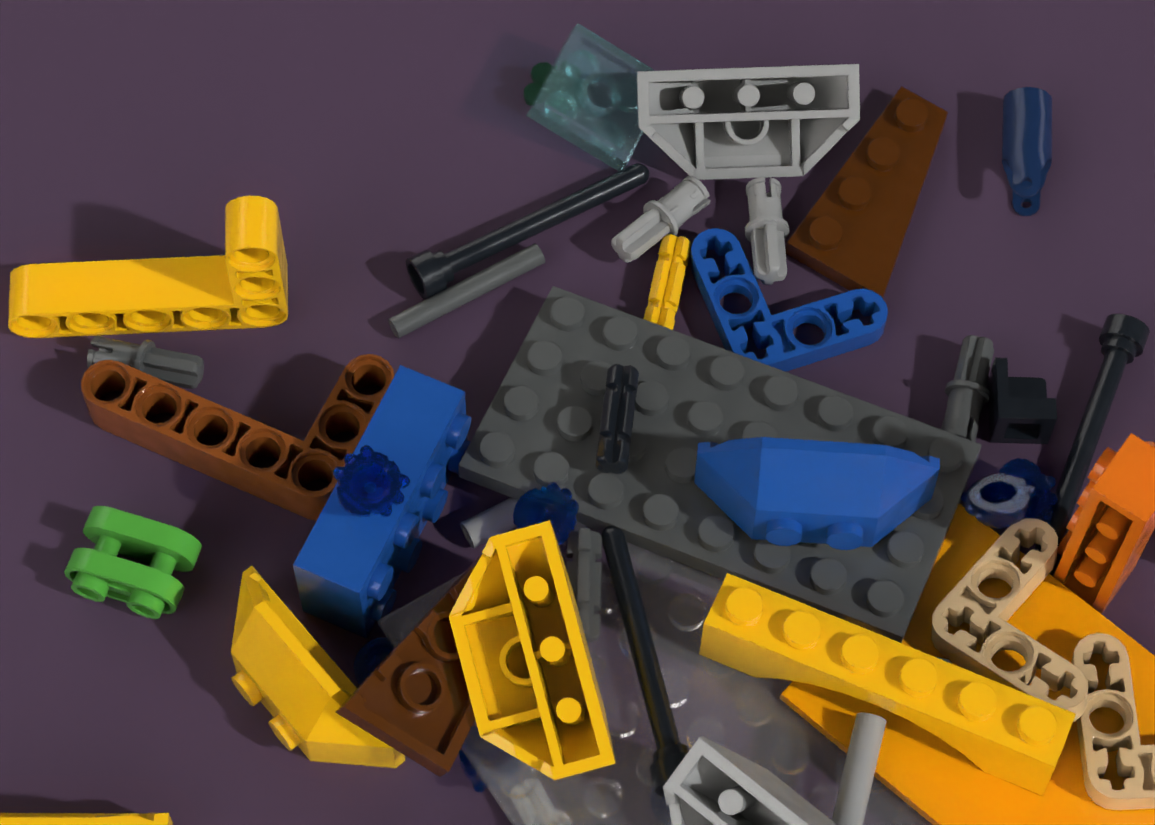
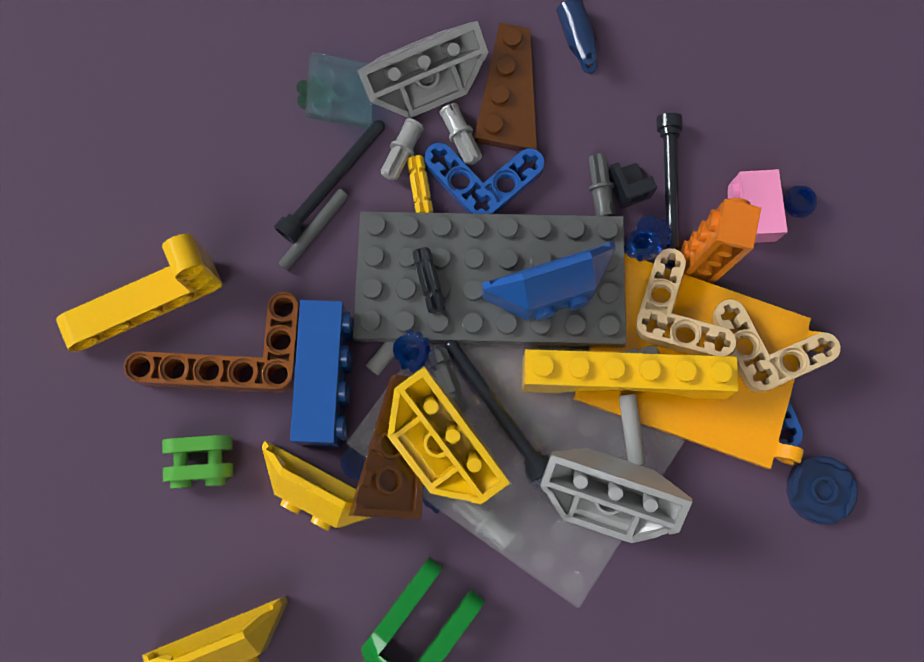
camera: 25 degrees left, 15 degrees up
(170, 366) = (155, 341): dark grey axle -> none
(366, 470) = (313, 392): clear blue animal -> none

